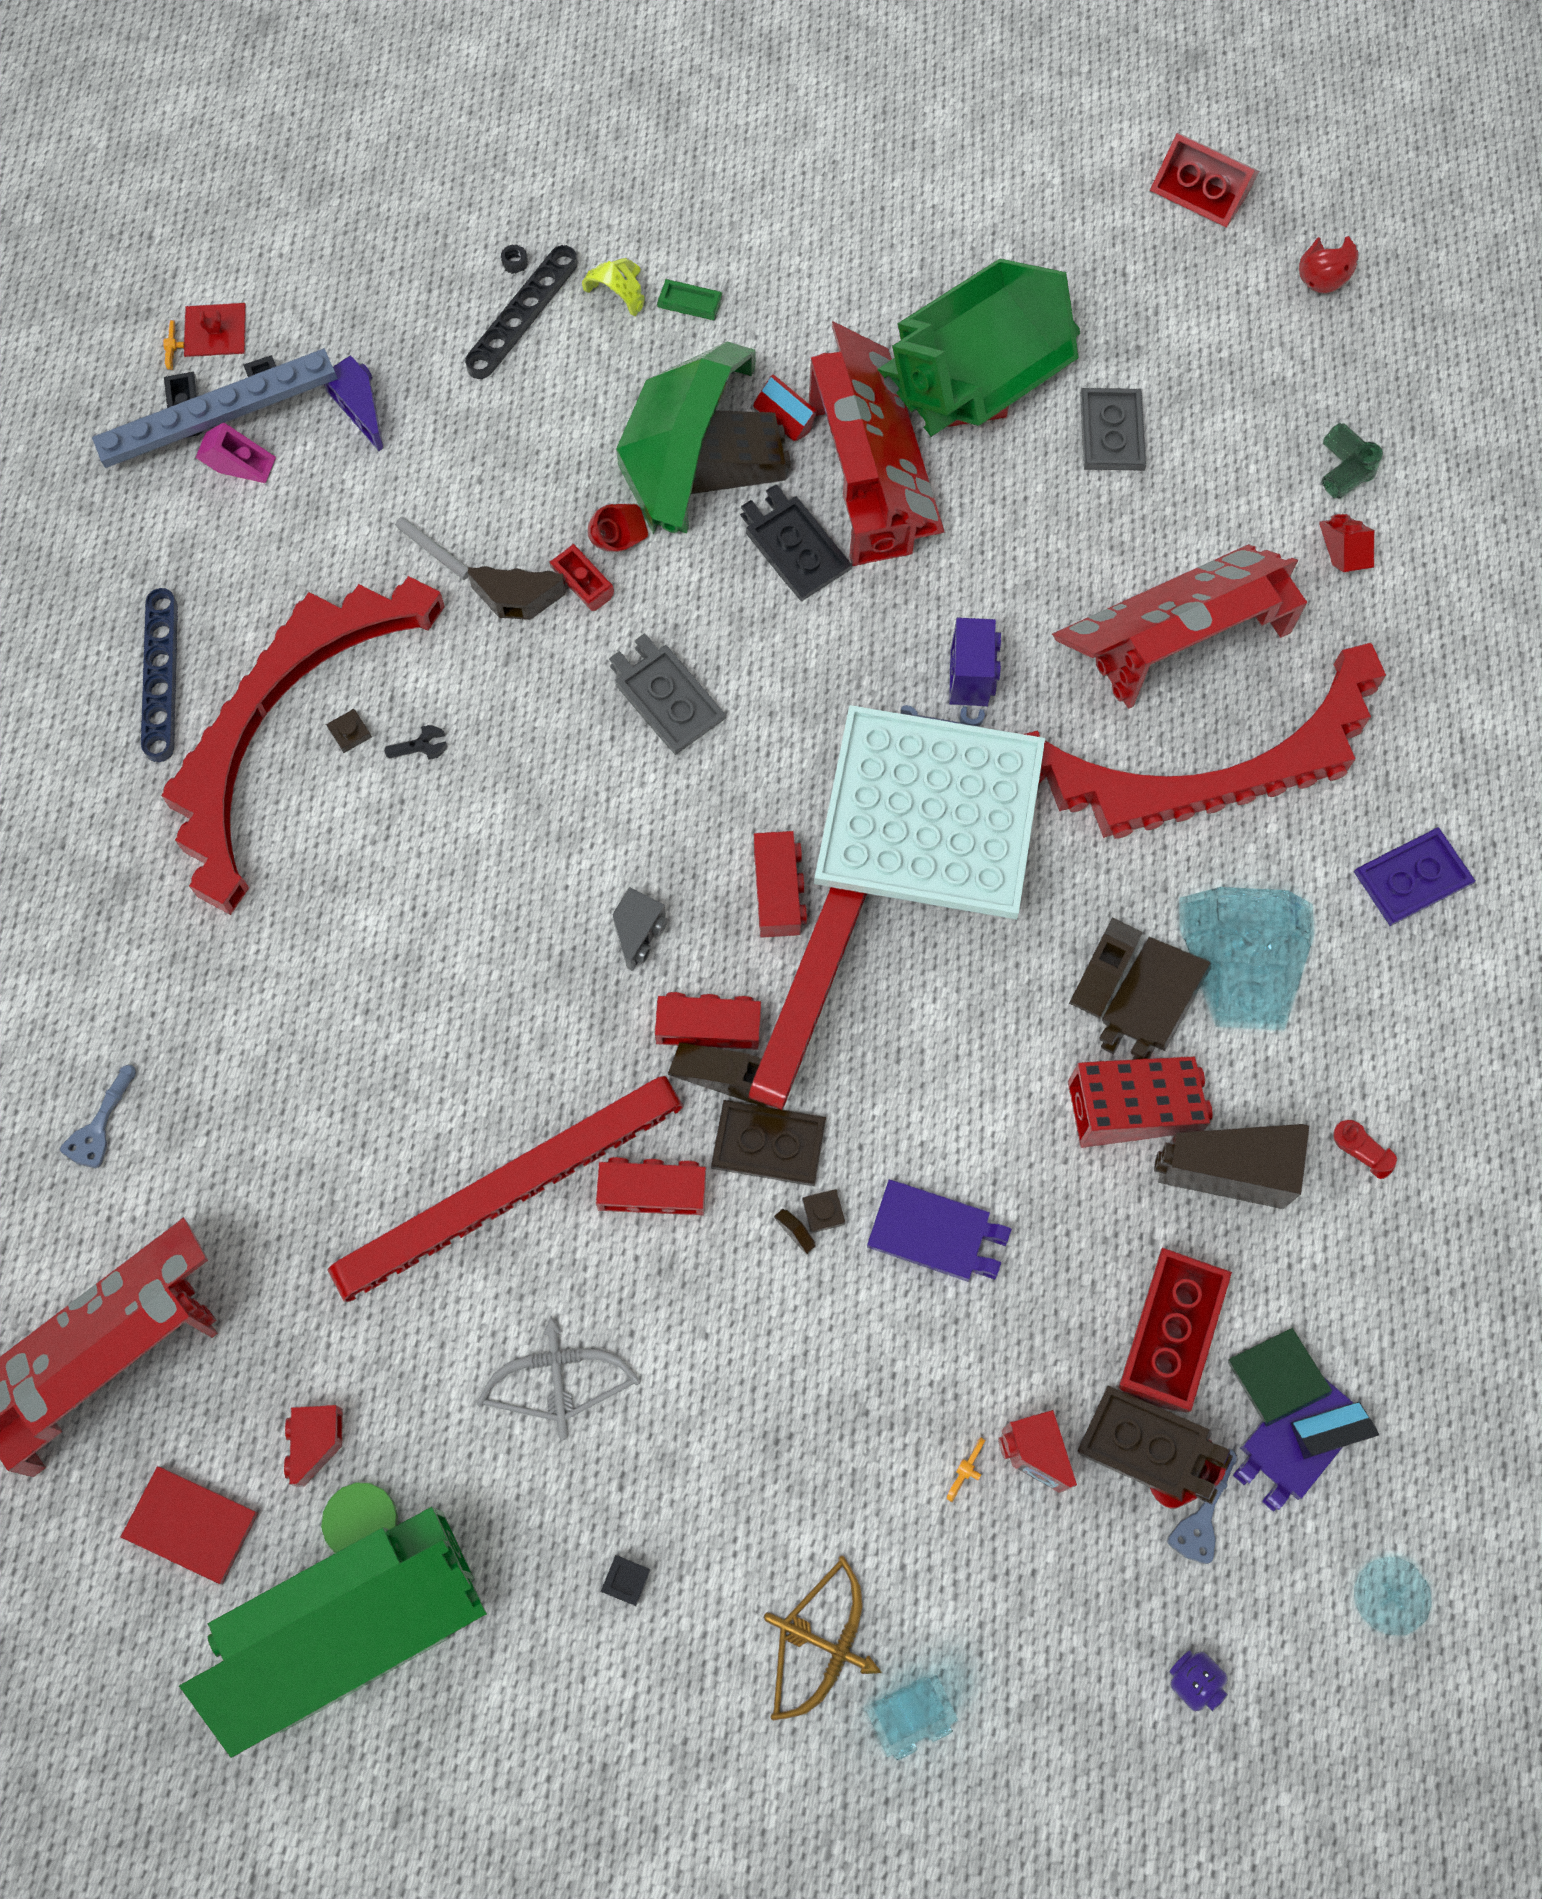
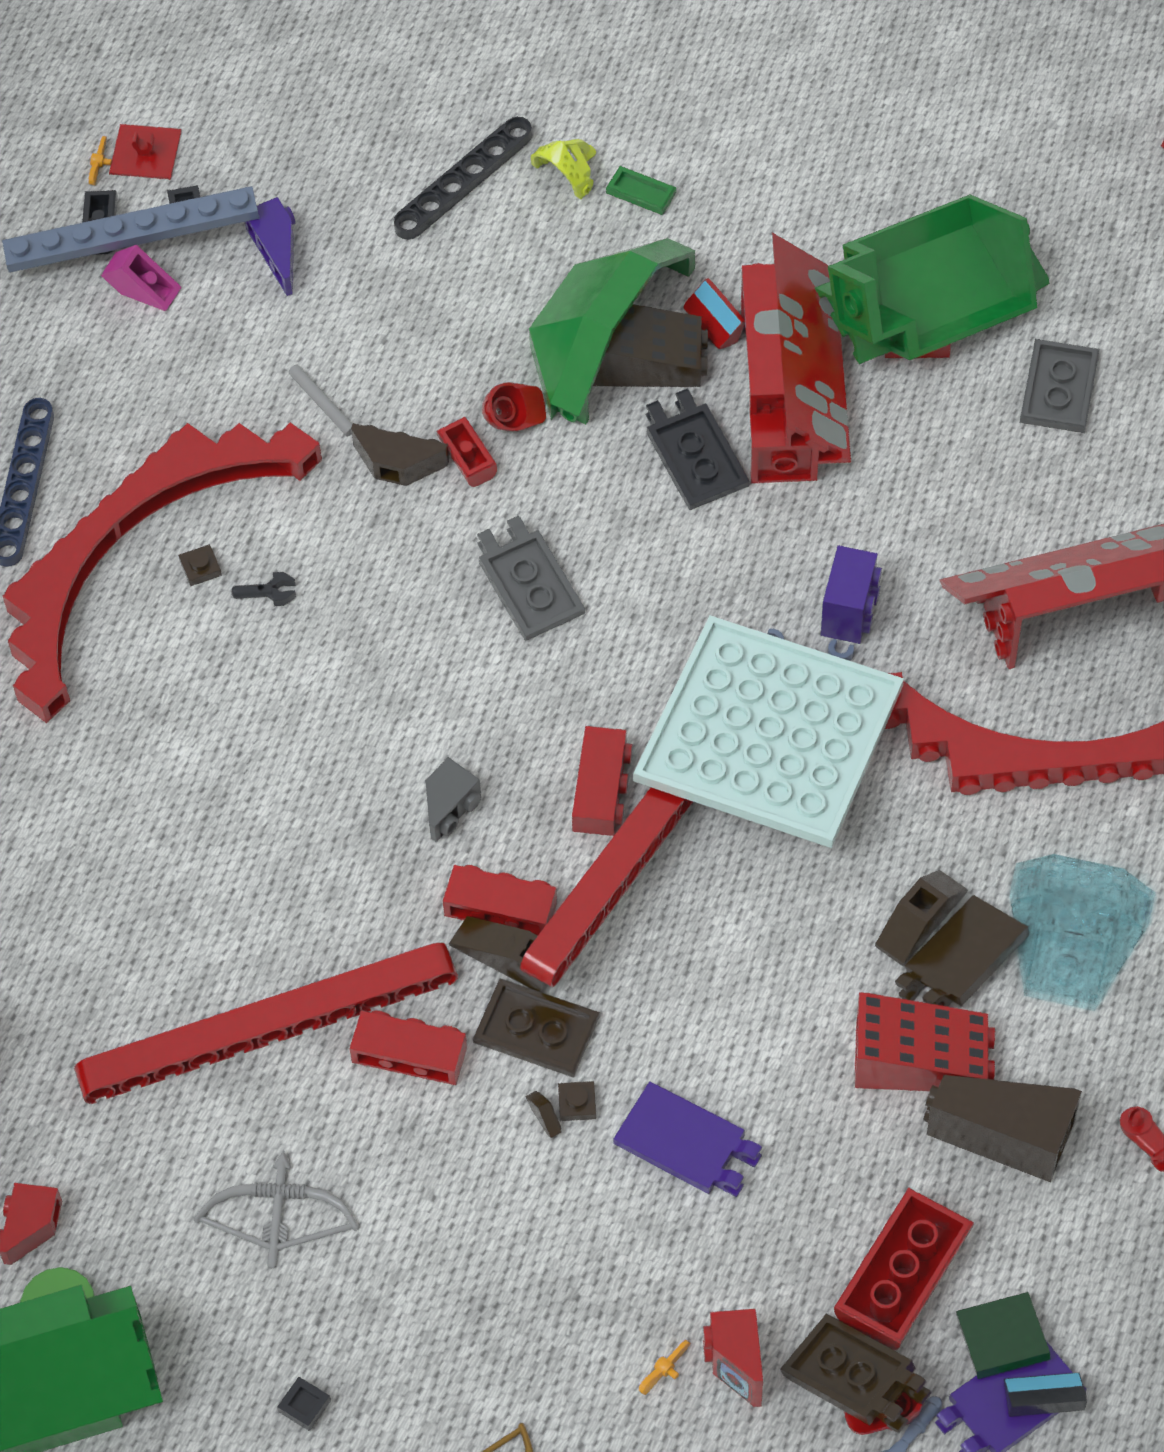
camera: 15 degrees right, 10 degrees down
(514, 251) = (466, 115): black axle -> none

